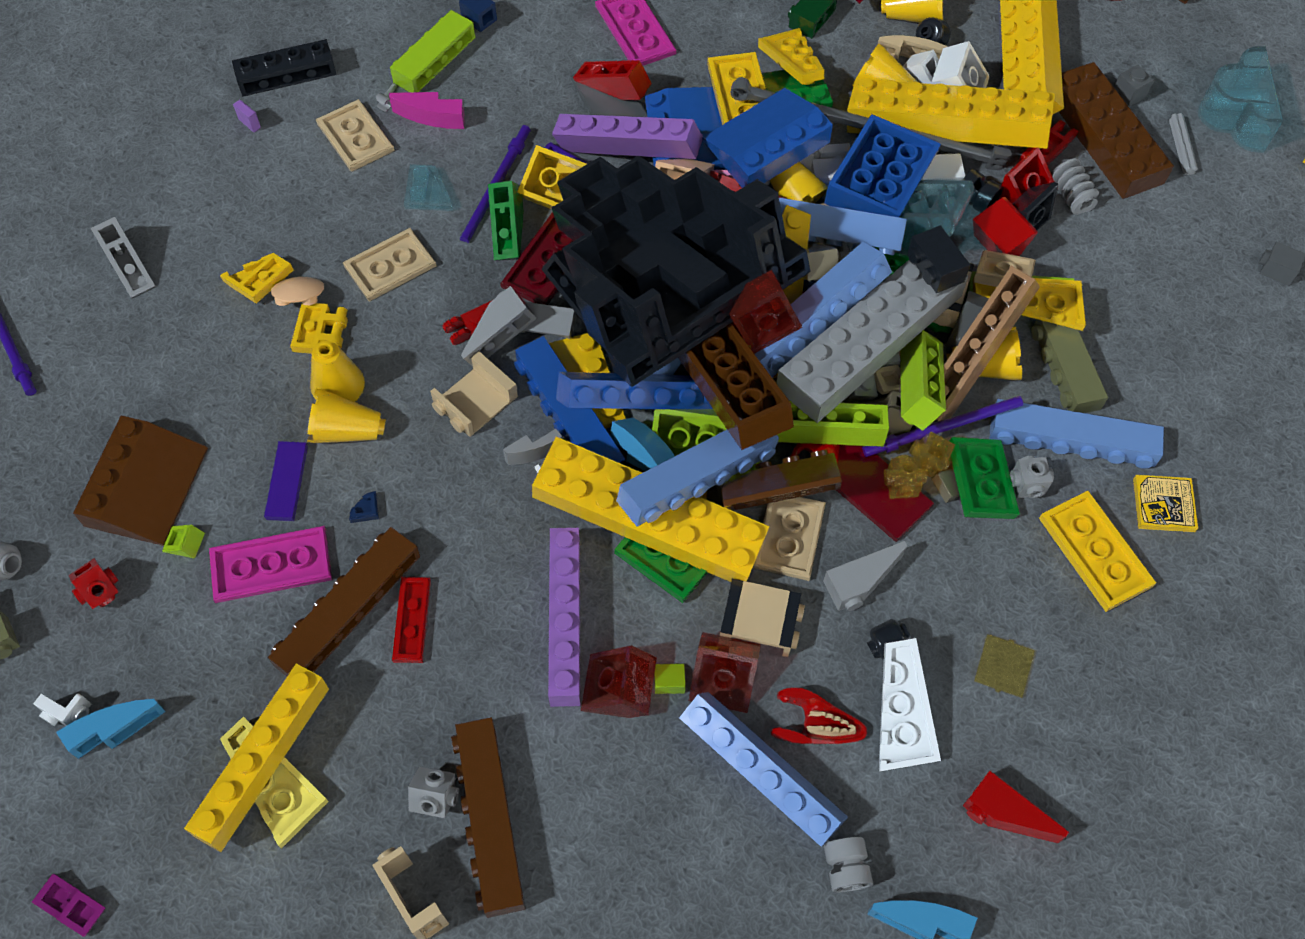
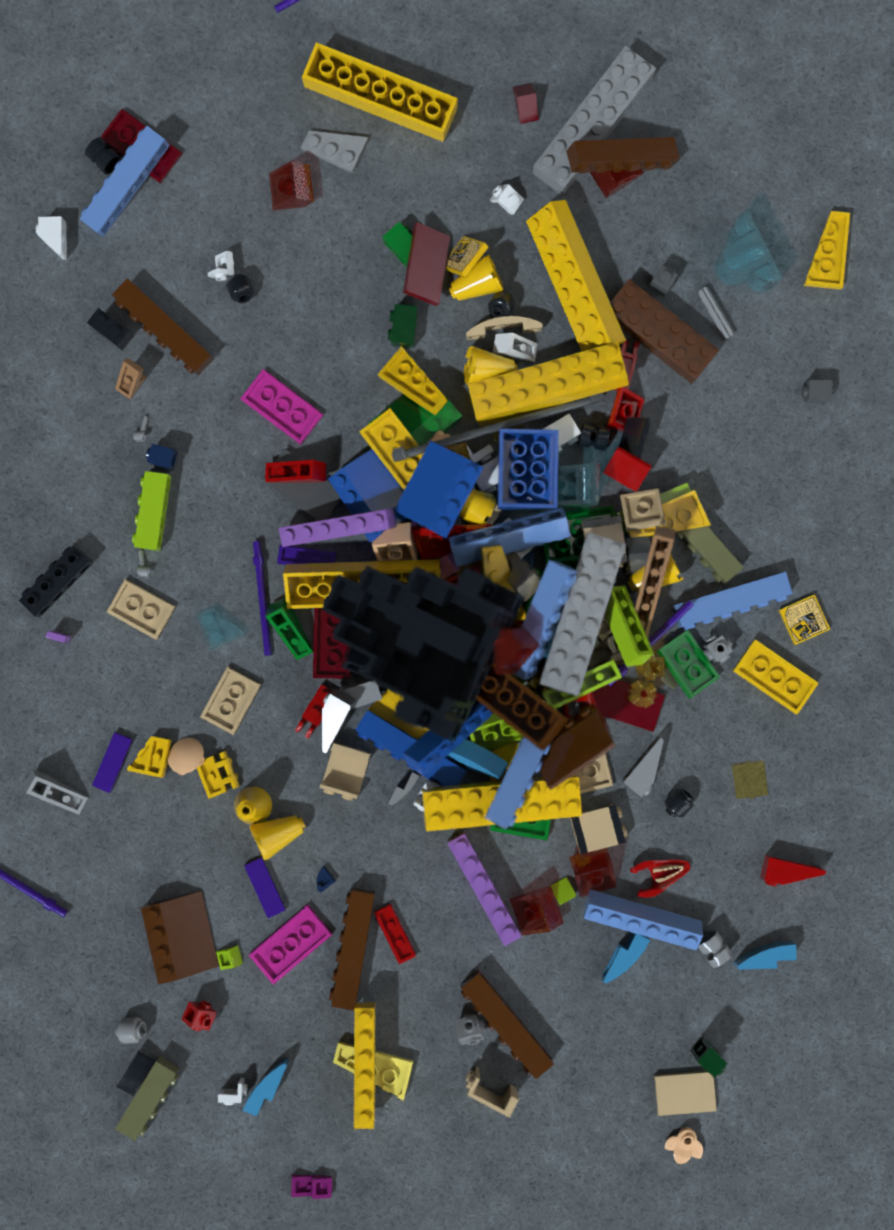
camera: 20 degrees left, 25 degrees up
(209, 262) = (112, 762): none -> dark purple tile
(429, 109) = (182, 563): dark pink slope -> none
(711, 808) = (625, 957): none -> dark azure slope
(906, 715) = (709, 848): white wing -> none
(938, 259) = (603, 550): black brick -> none
(960, 66) = (540, 343): white brick -> none
(1075, 186) = (656, 396): light grey piece -> none

